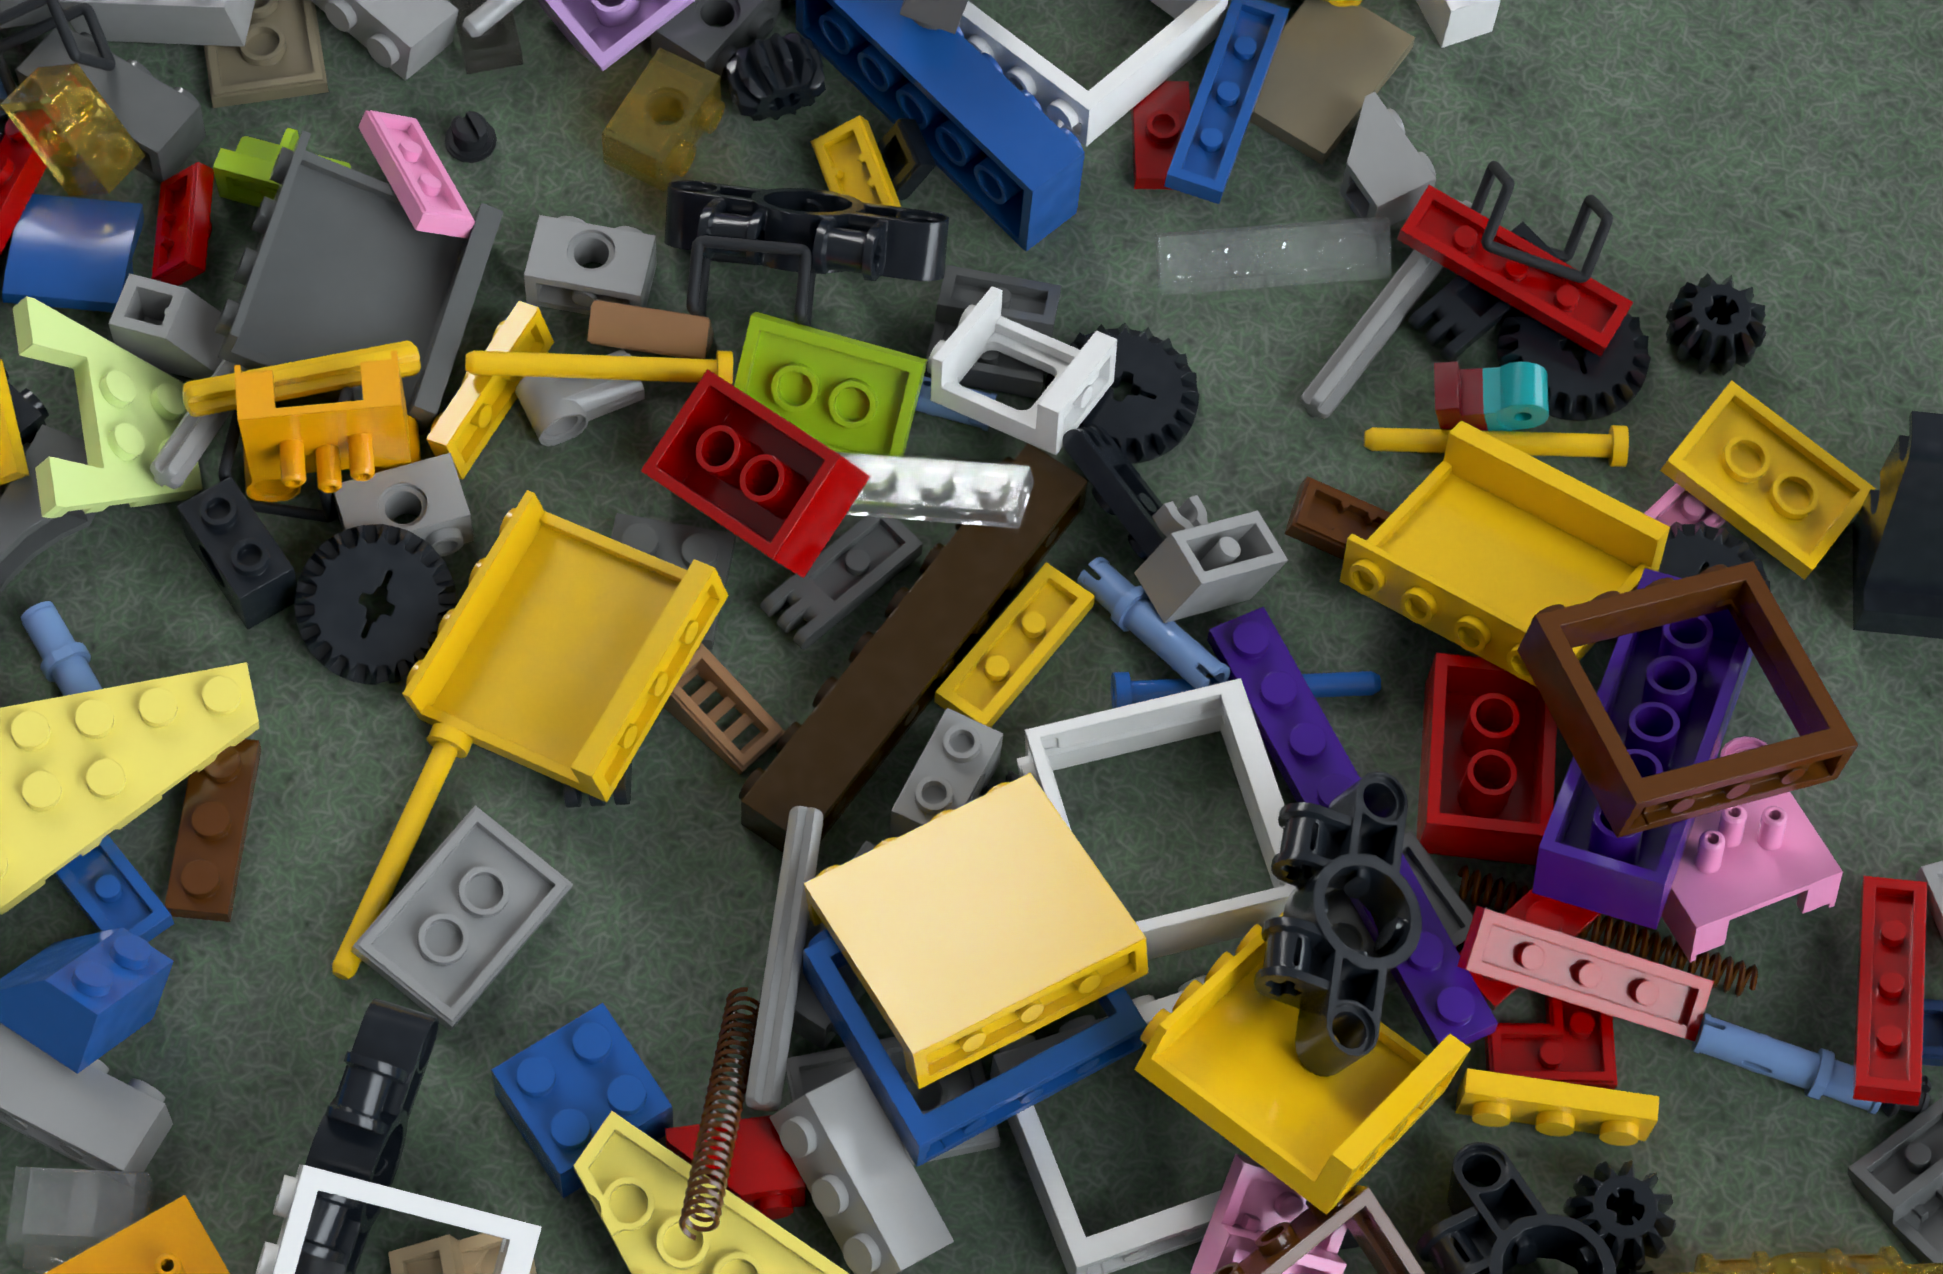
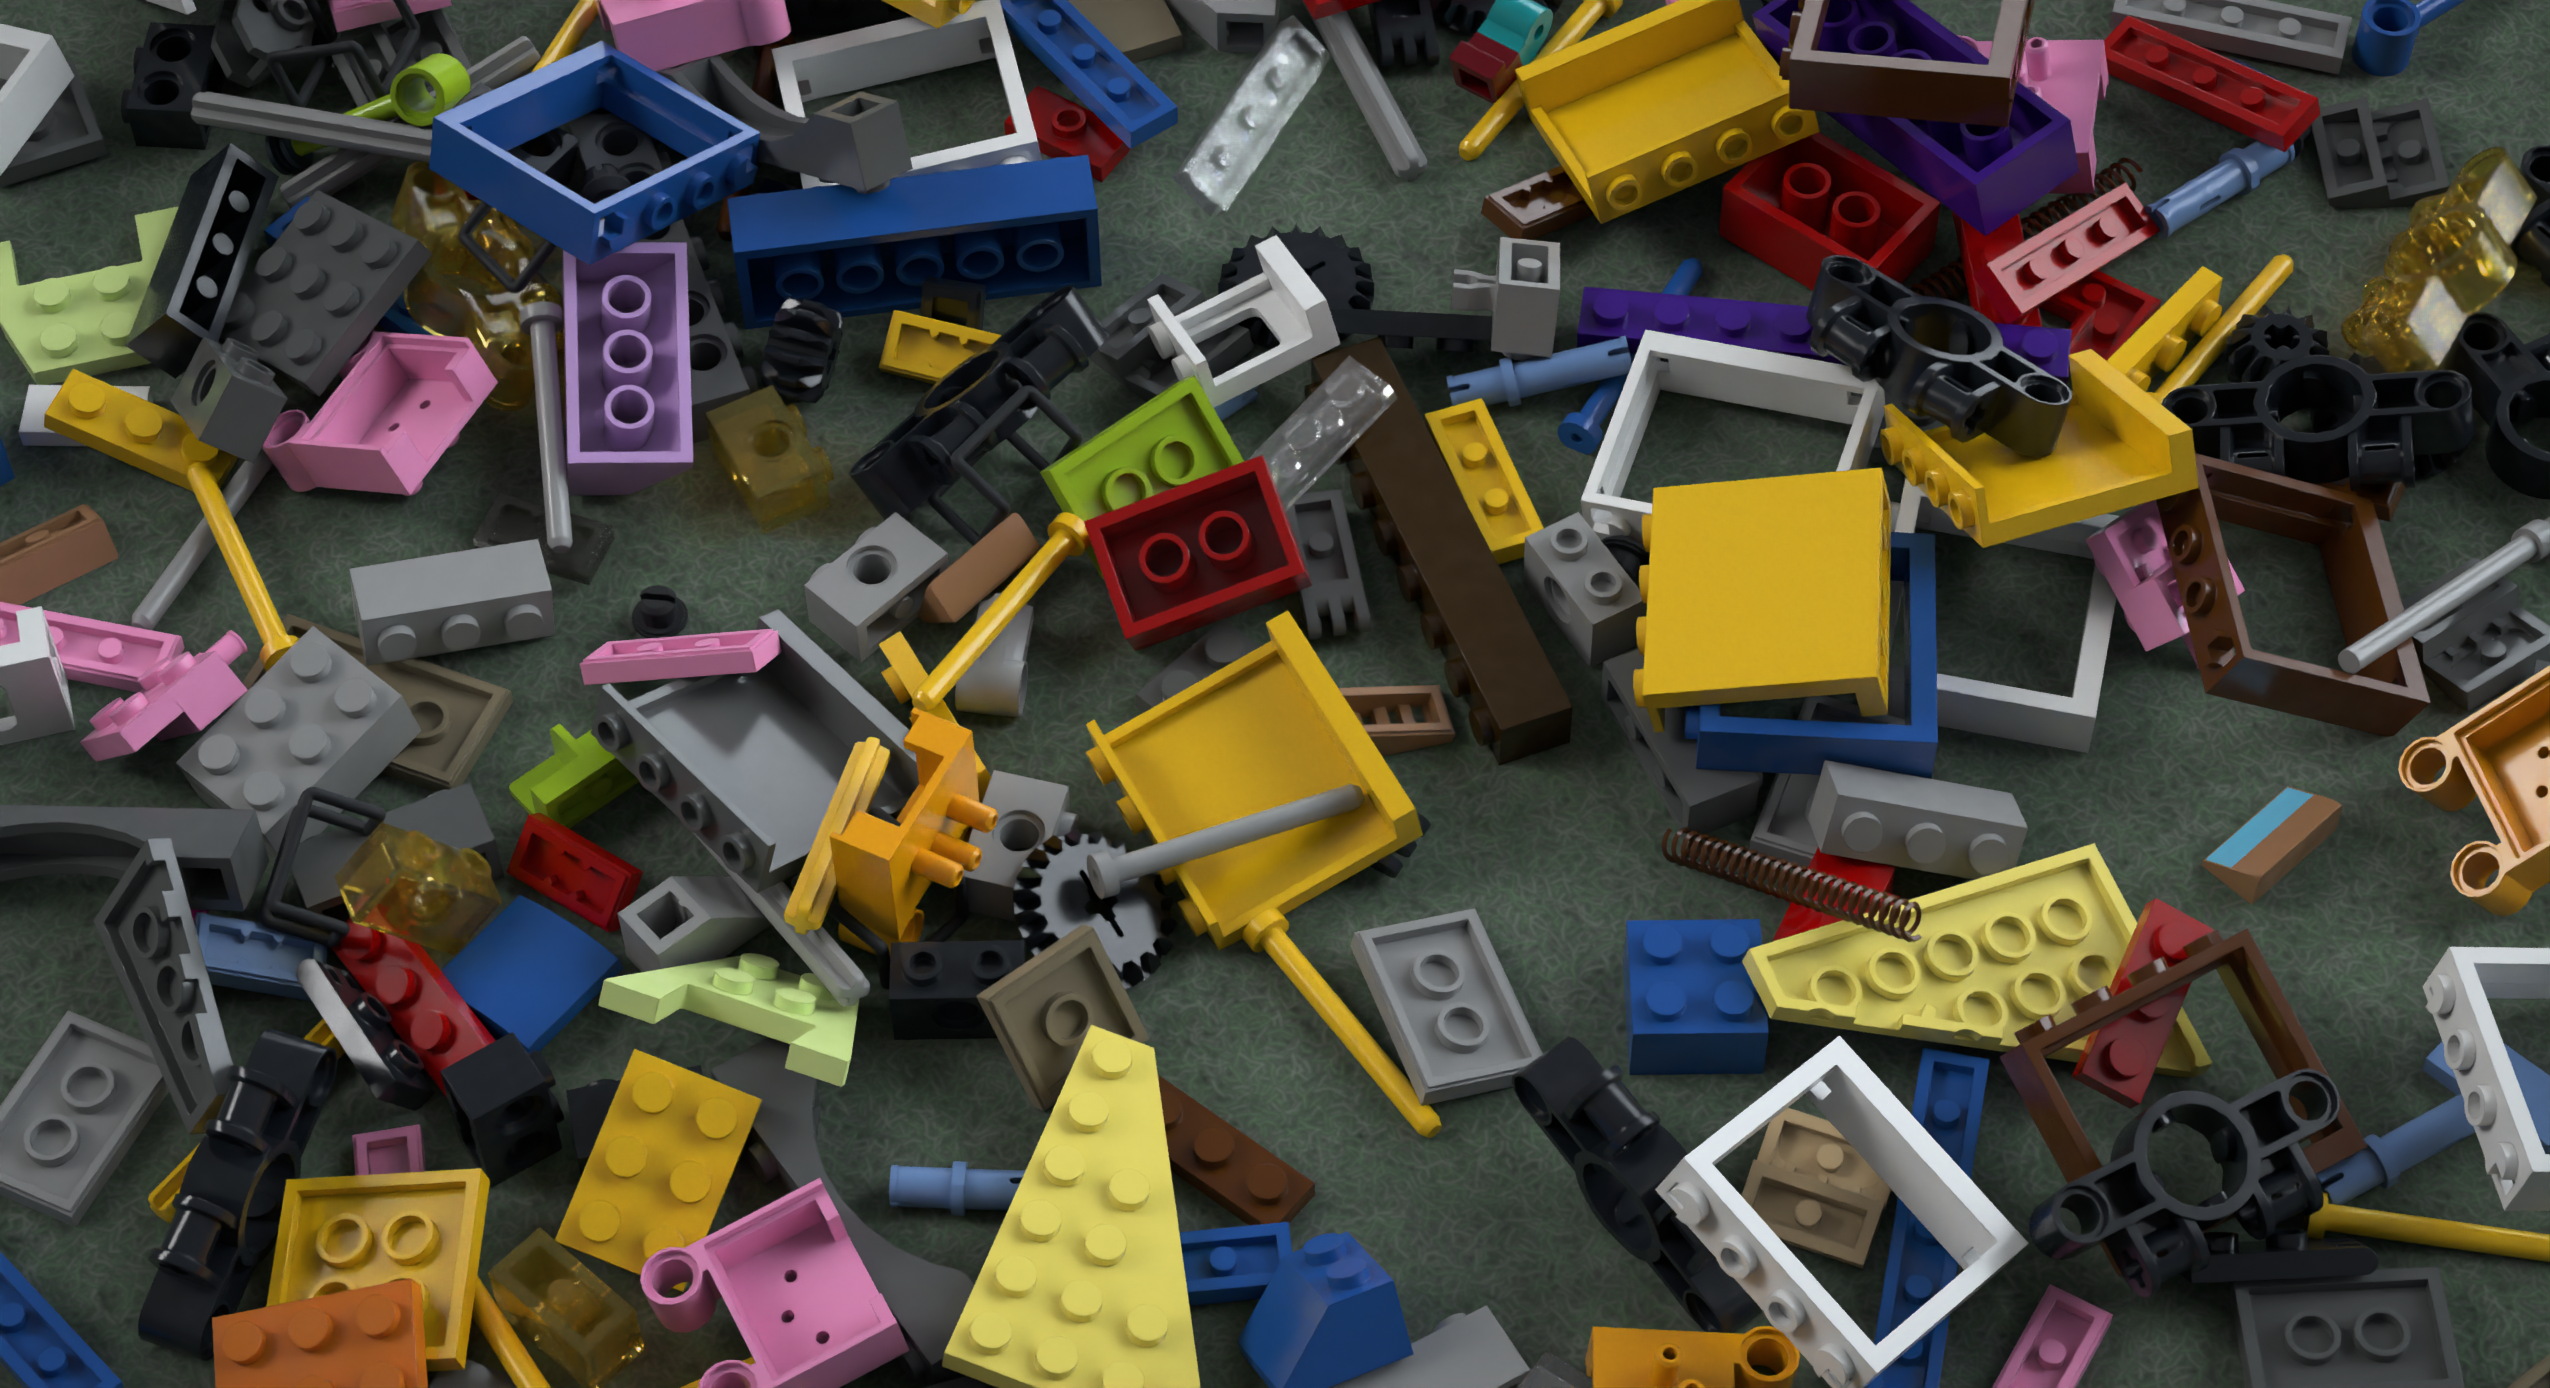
camera: 50 degrees left, 10 degrees down
(255, 623) = (1049, 1006): none -> dark tan tile
(389, 589) = (1108, 872): none -> light grey bar
(784, 960) = (1679, 767): light grey axle -> none
(1592, 1153) = (2215, 339): none -> yellow bar

